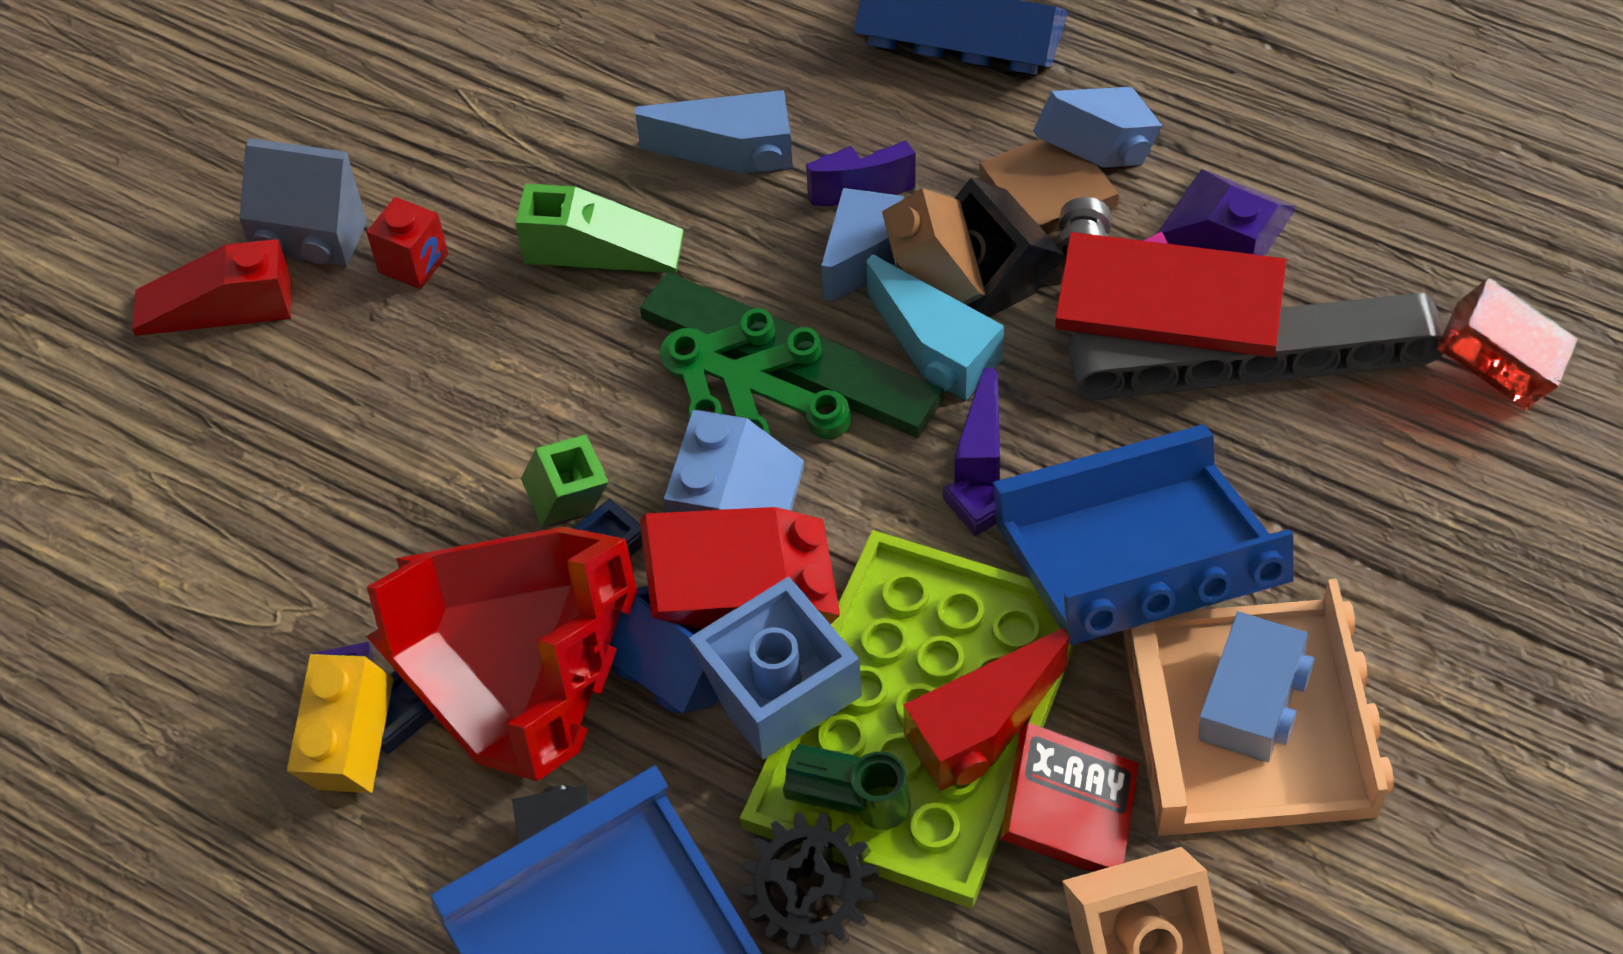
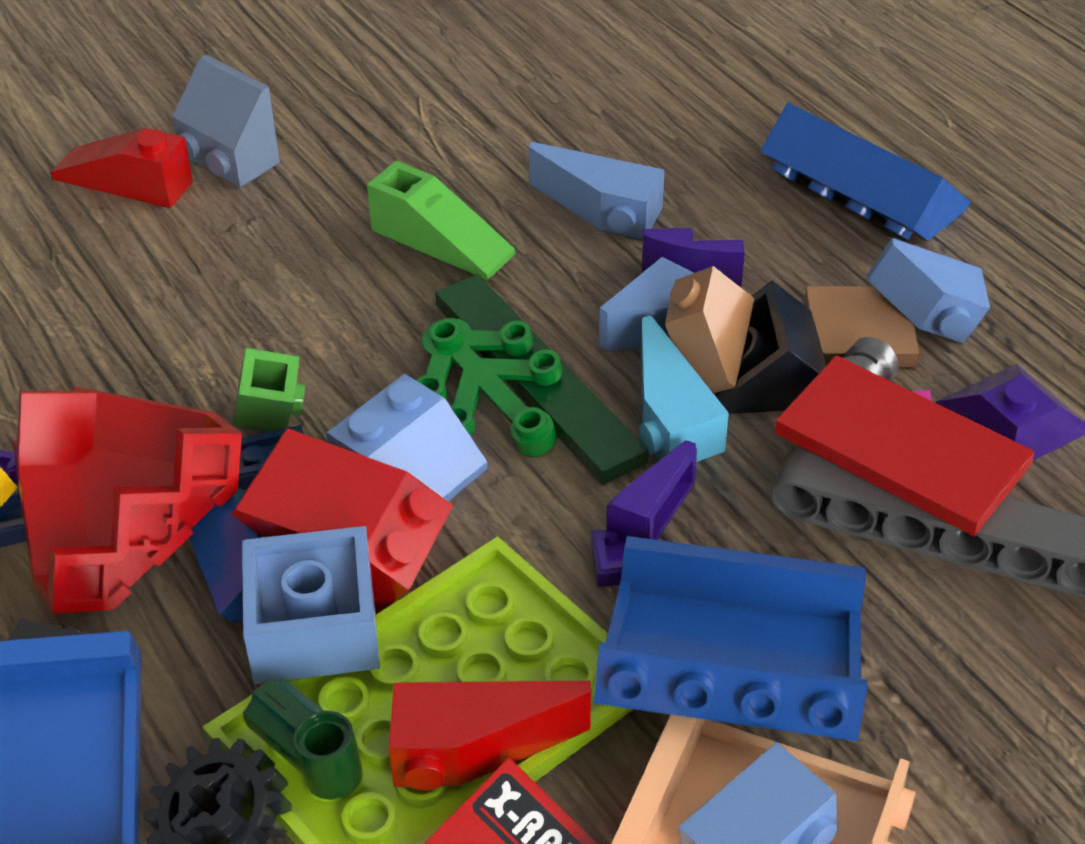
camera: 25 degrees right, 10 degrees down
(407, 242) = (287, 180): red brick -> none

